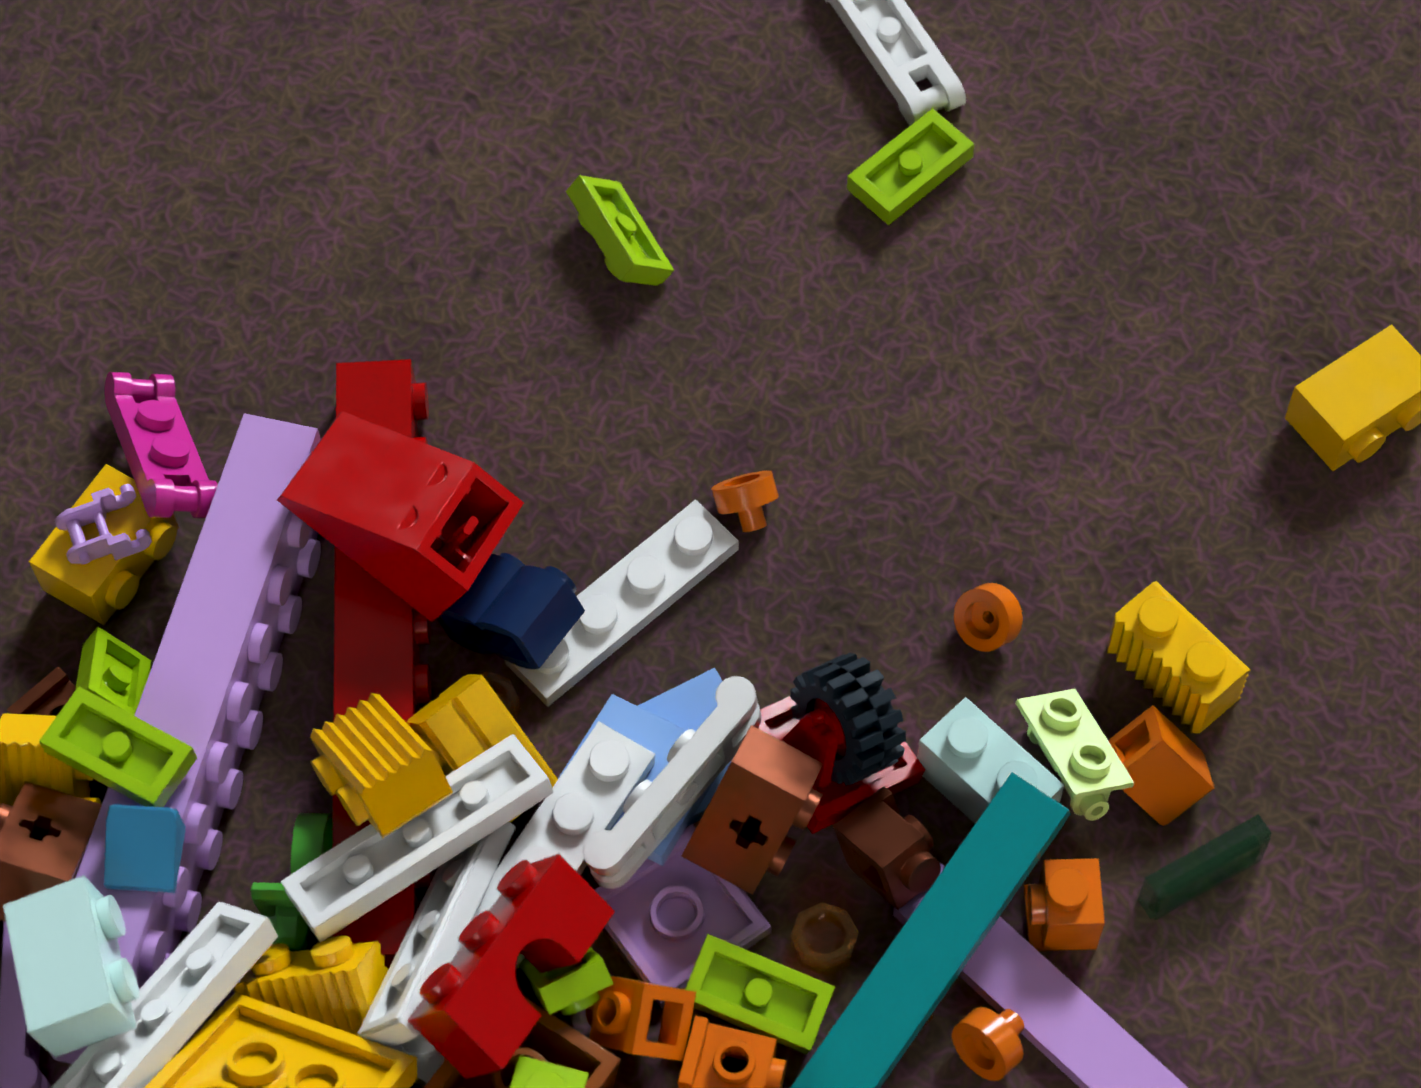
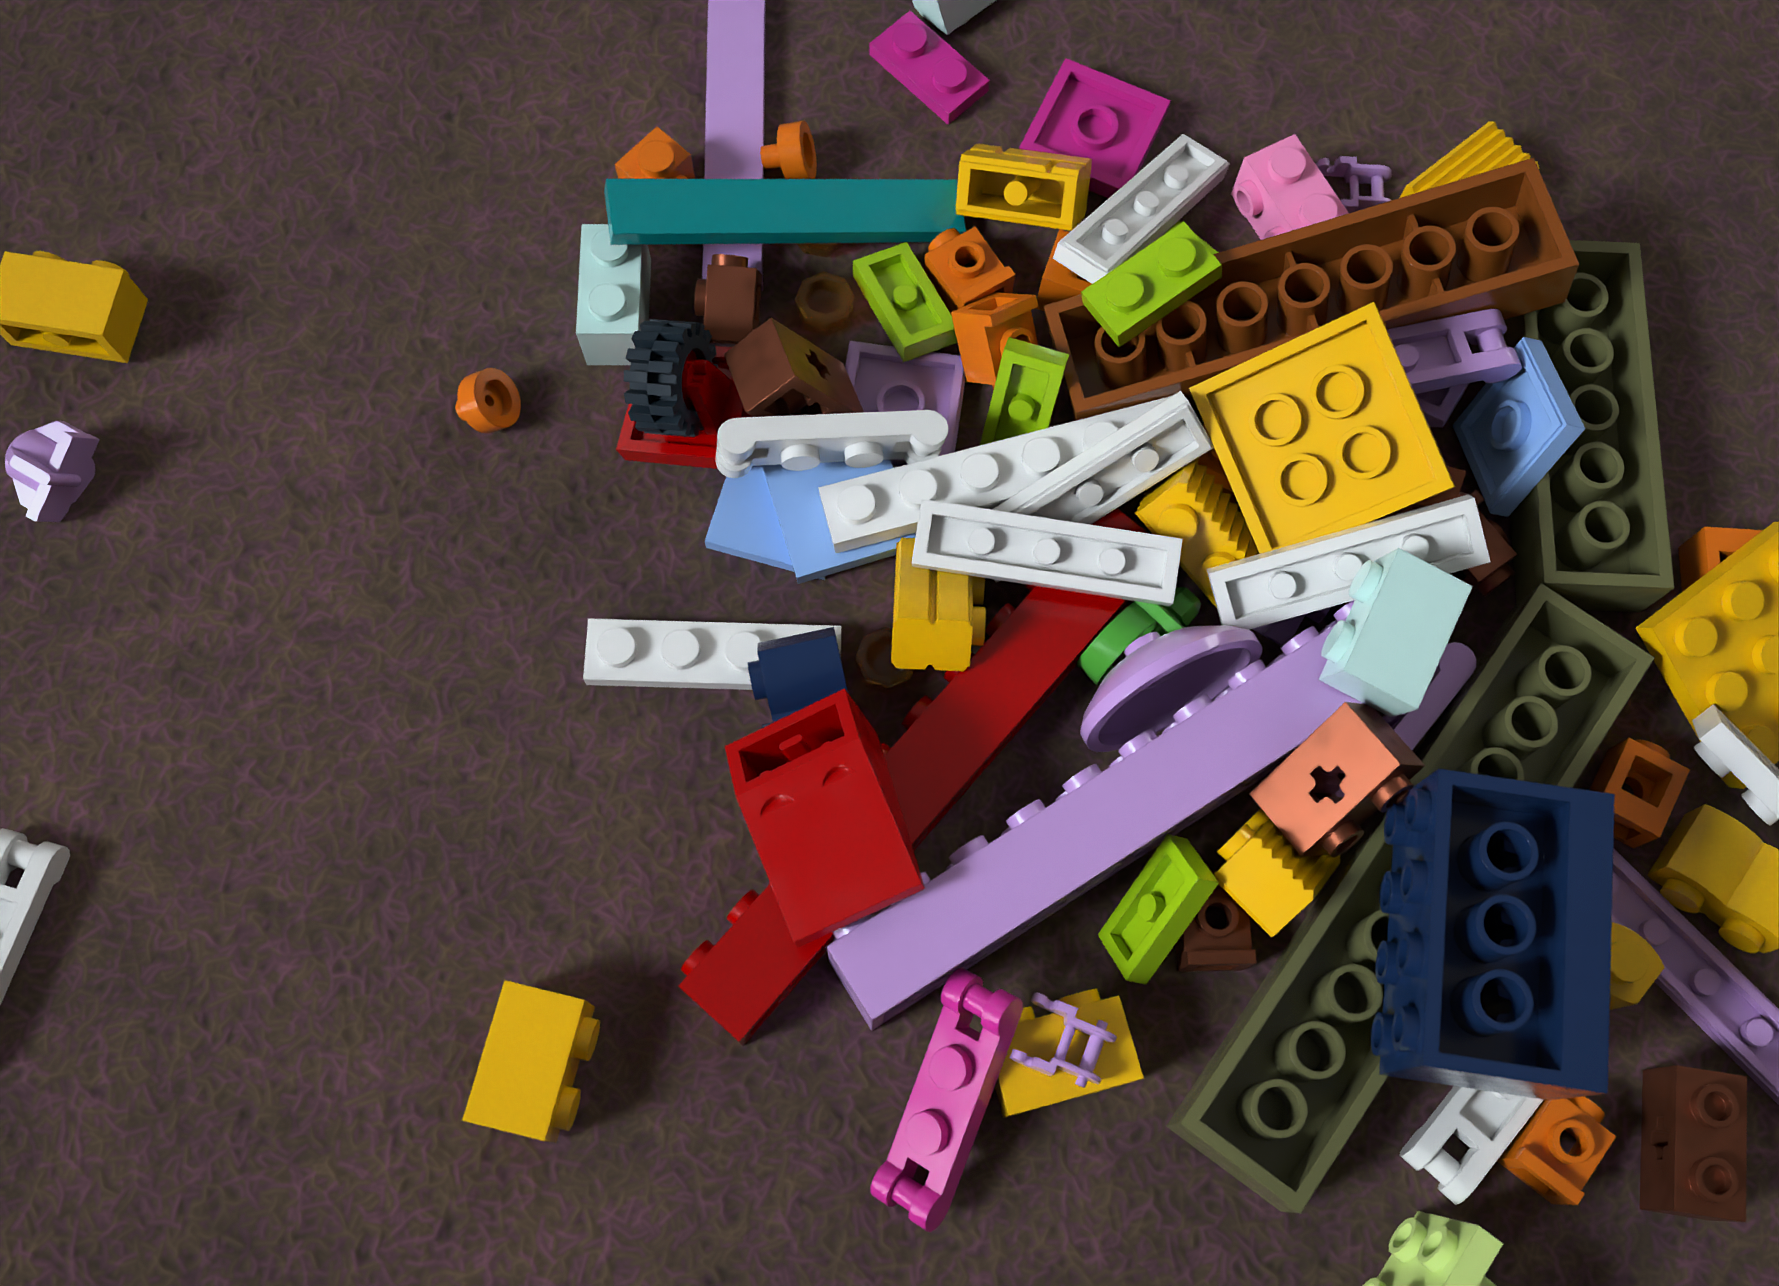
camera: 140 degrees left, 10 degrees up
(118, 749) = (1224, 784): lime plate -> none
(143, 848) = (1264, 691): dark azure slope -> none
(239, 829) = (1162, 678): none -> lavender dish
(378, 766) = (1032, 618): yellow brick -> none
(466, 252) = (532, 1062): none -> yellow brick
(473, 1002) = (1036, 409): red arch -> none
(619, 231) = (392, 969): lime plate -> none
(746, 497) = (545, 645): orange tile -> none
(910, 166) = (116, 806): lime plate -> none
(1075, 750) = (540, 255): yellowish green hinge -> none
(1164, 765) = (501, 215): orange panel -> none
(1177, 657) = (406, 259): yellow brick -> none
(1204, 867) = (549, 130): clear green tile -> none
(1228, 298) = (51, 468): none -> lavender piece

